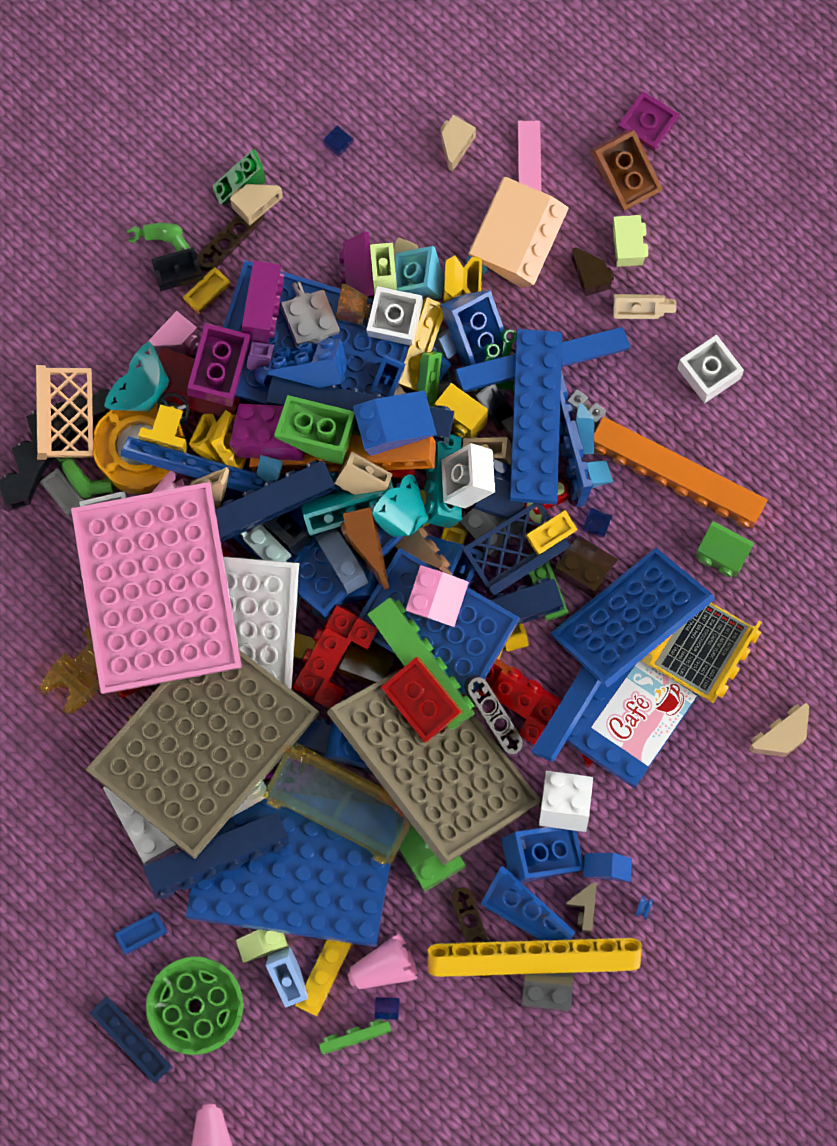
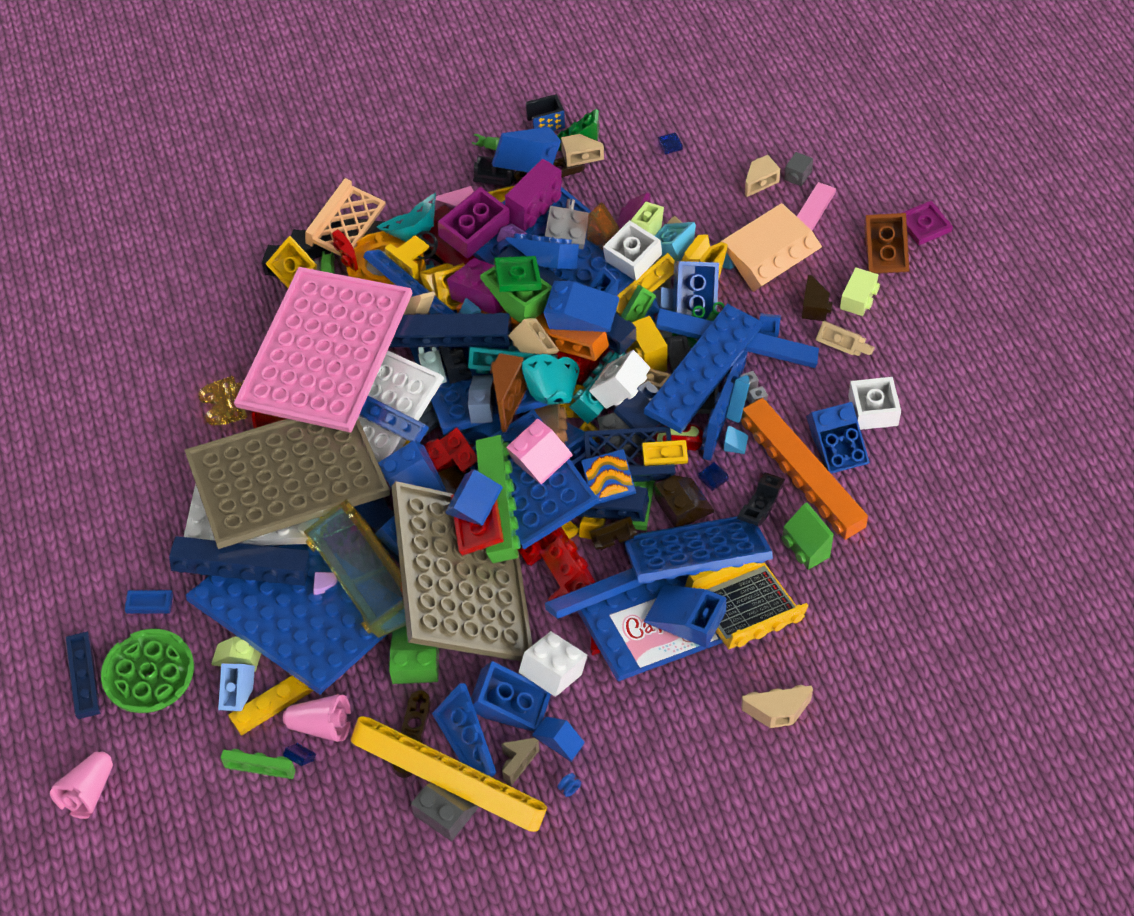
camera: 30 degrees right, 20 degrees down
(42, 495) = (288, 259): none -> yellow slope
(99, 458) = (346, 250): none -> red slope
(181, 158) = (546, 112): none -> piece
(210, 235) = (526, 148): none -> blue slope
(275, 632) = (393, 420): none -> blue tile
(305, 832) = (323, 581): none -> lavender tile
(313, 417) = (517, 273): none -> green plate
(327, 679) = (412, 466): none -> blue slope
(410, 683) = (474, 498): none -> blue slope
(490, 115) = (798, 169): none -> dark grey brick
(495, 713) = (530, 568): beam -> none
(514, 585) = (609, 476): none -> slope
(535, 643) = (605, 535): none -> dark brown hinge
(562, 322) = (770, 325): none -> blue tile
(659, 531) = (763, 500): none -> black slope
(661, 691) = (688, 613): none -> blue slope
(693, 422) = (838, 437): none -> blue slope

